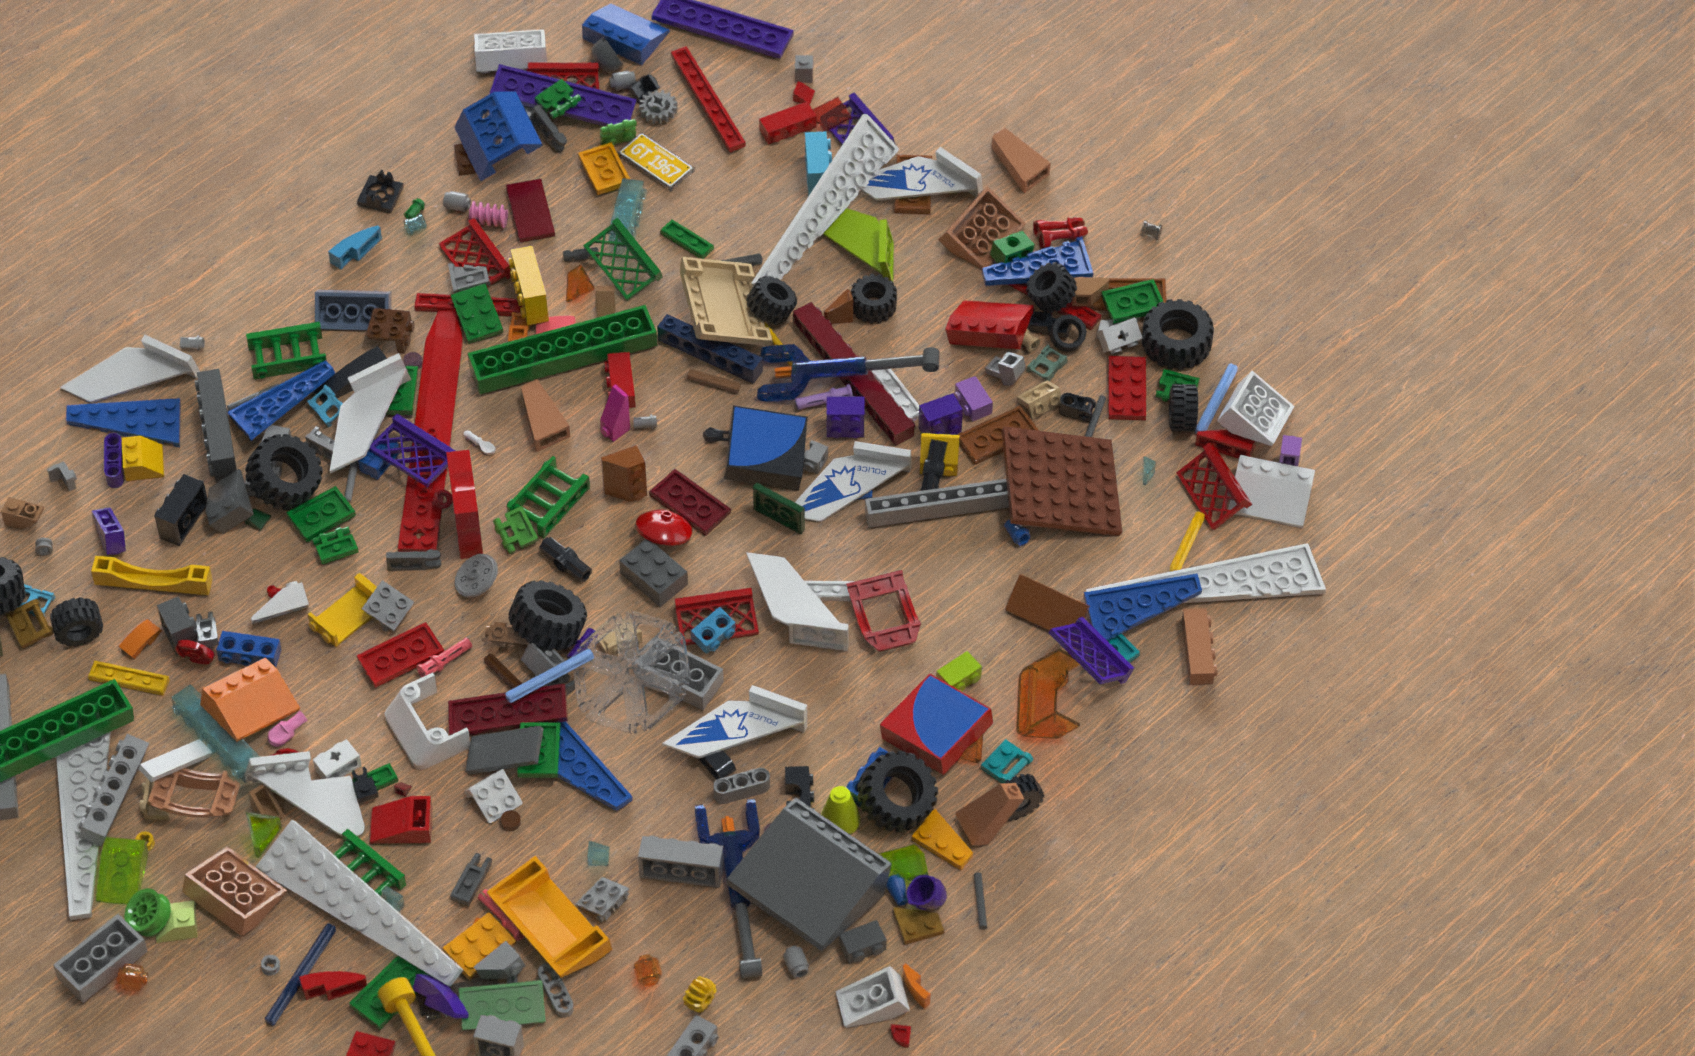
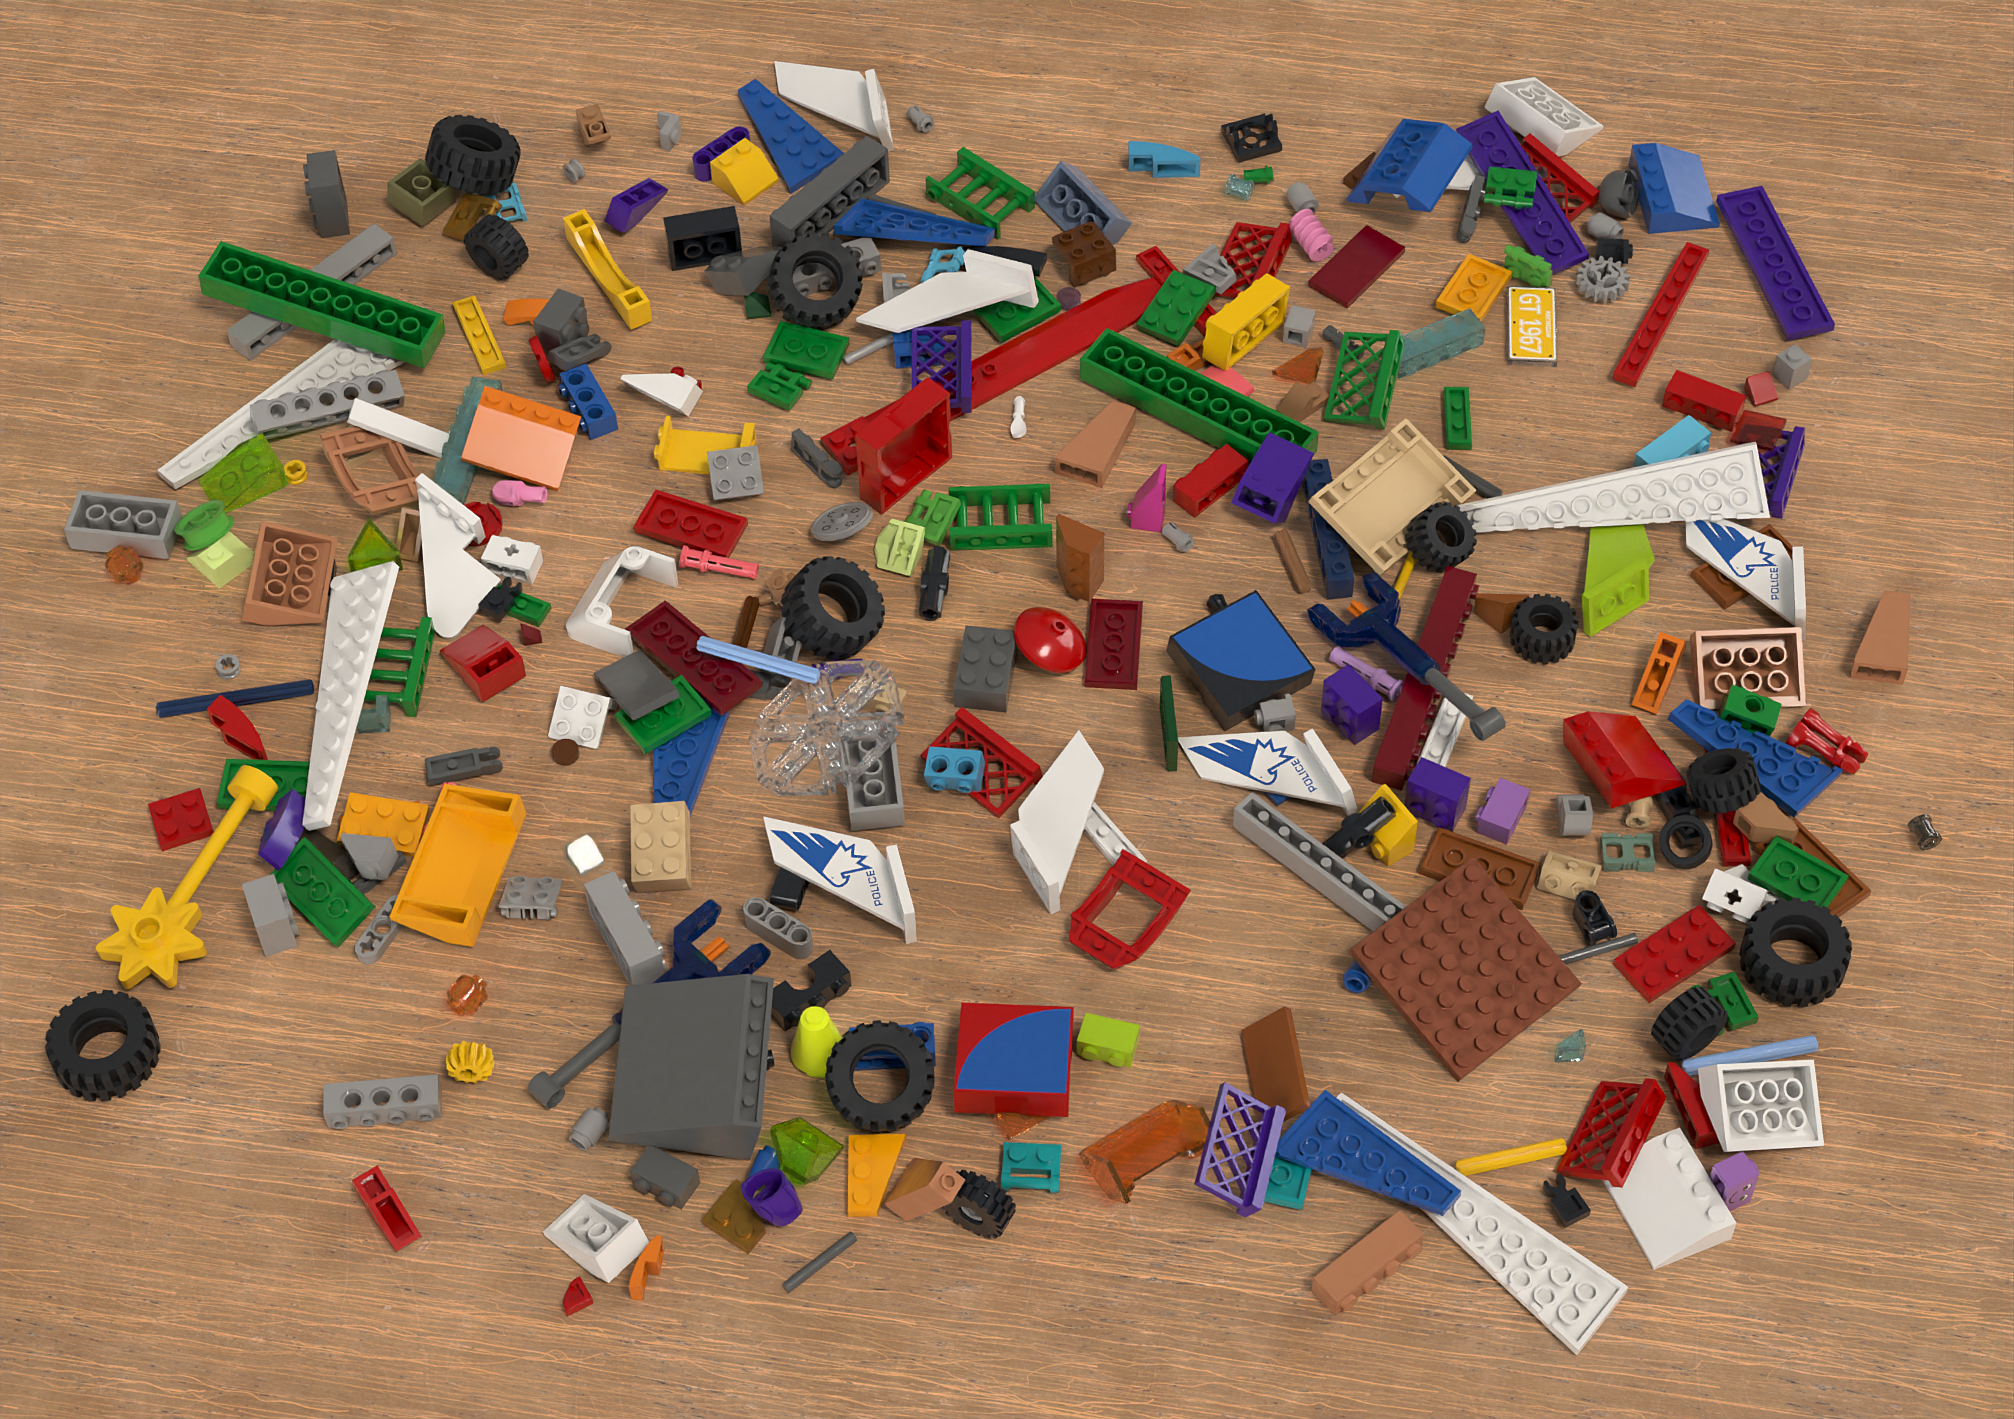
camera: 55 degrees right, 0 degrees up
(521, 560) = (899, 547): none -> yellowish green slope
(550, 265) = (1299, 326): none -> light grey brick
(635, 807) = (660, 846): none -> tan brick
(657, 347) = (1273, 479): none -> dark purple slope
(948, 269) = (1659, 672): none -> orange slope
(1237, 536) = (1566, 1204): none -> black plate

